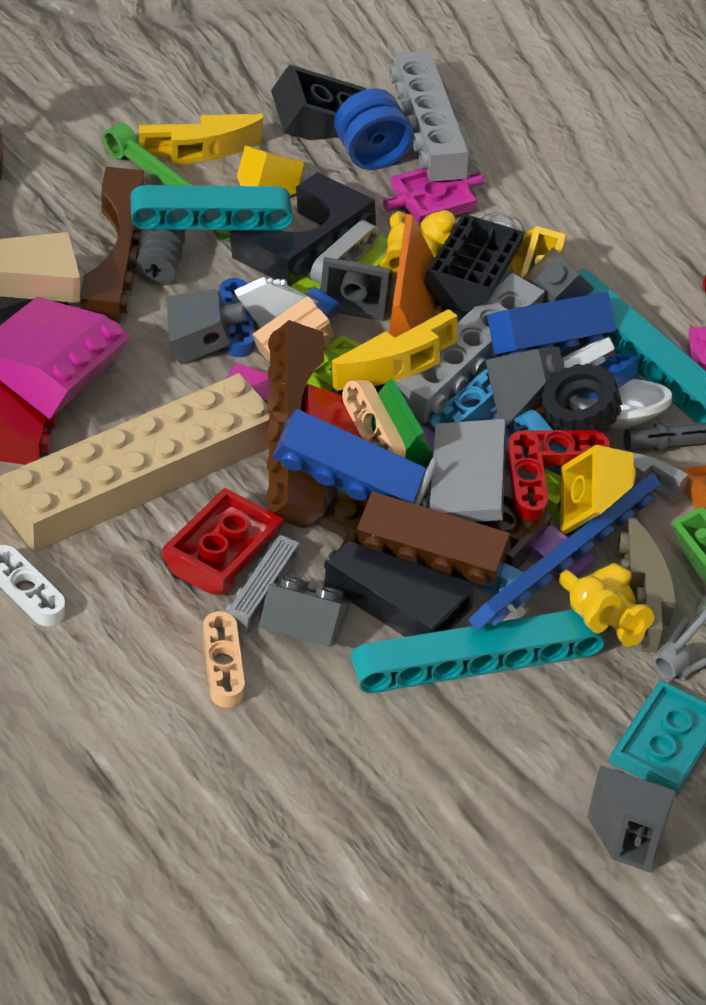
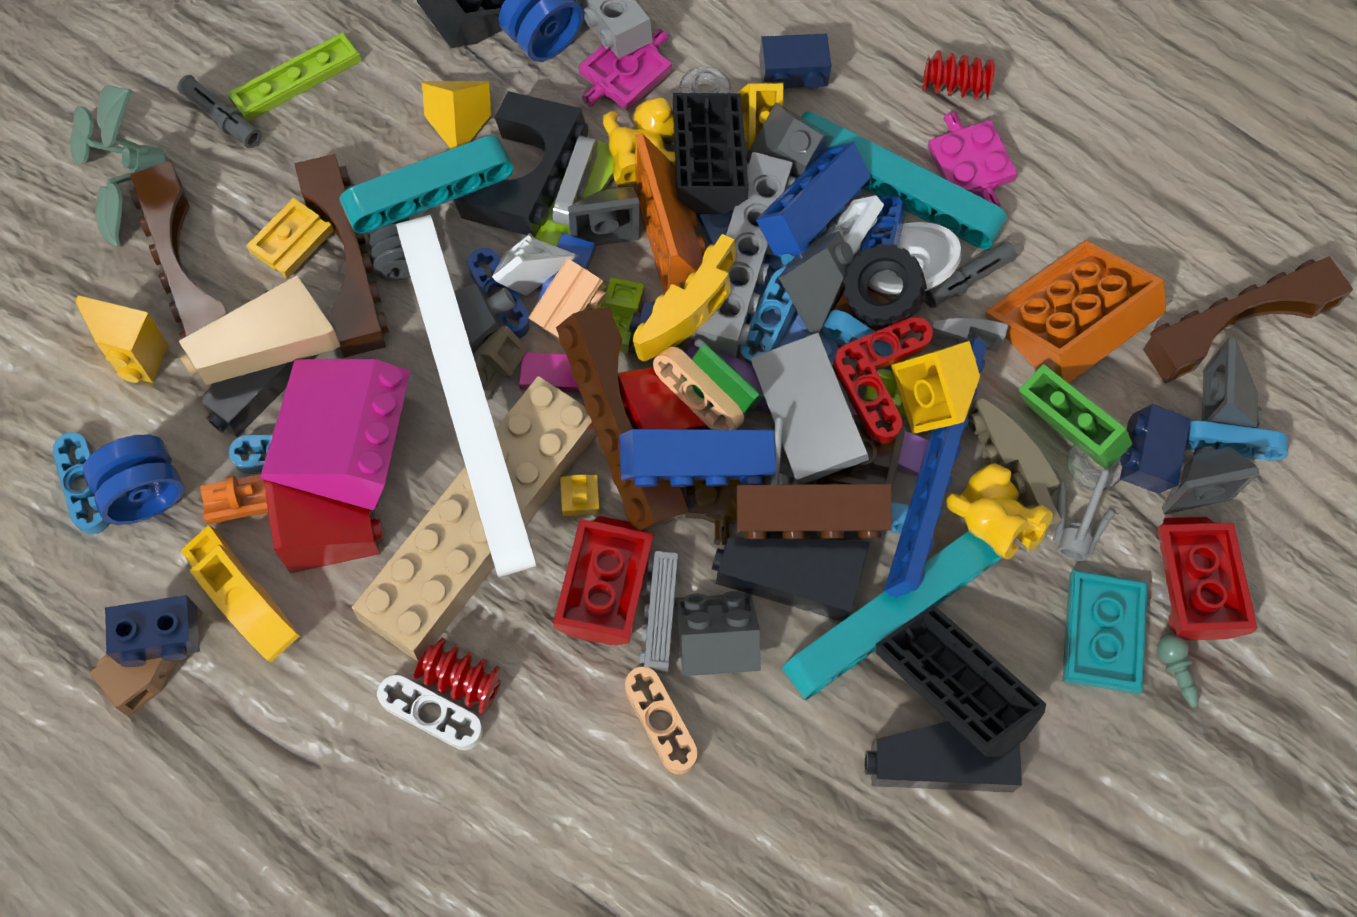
camera: 20 degrees left, 20 degrees up
(64, 562) = (458, 675): none -> red piece
(65, 125) = (228, 119): none -> dark grey pin
(82, 218) = (290, 238): none -> yellow plate
(122, 142) = (297, 121): bright green piece -> none
(167, 360) = (466, 398): none -> white beam
(169, 110) = (294, 76): none -> lime tile
(202, 359) = (498, 357): none -> dark tan slope
(204, 141) = (382, 84): yellow slope -> none
(235, 476) = (579, 495): none -> yellow tile
(471, 768) = (940, 760): none -> black slope
(506, 705) = (962, 682): none -> black piece
(592, 230) = (795, 60): none -> dark blue brick
(629, 816) = (1127, 759): dark grey slope -> none

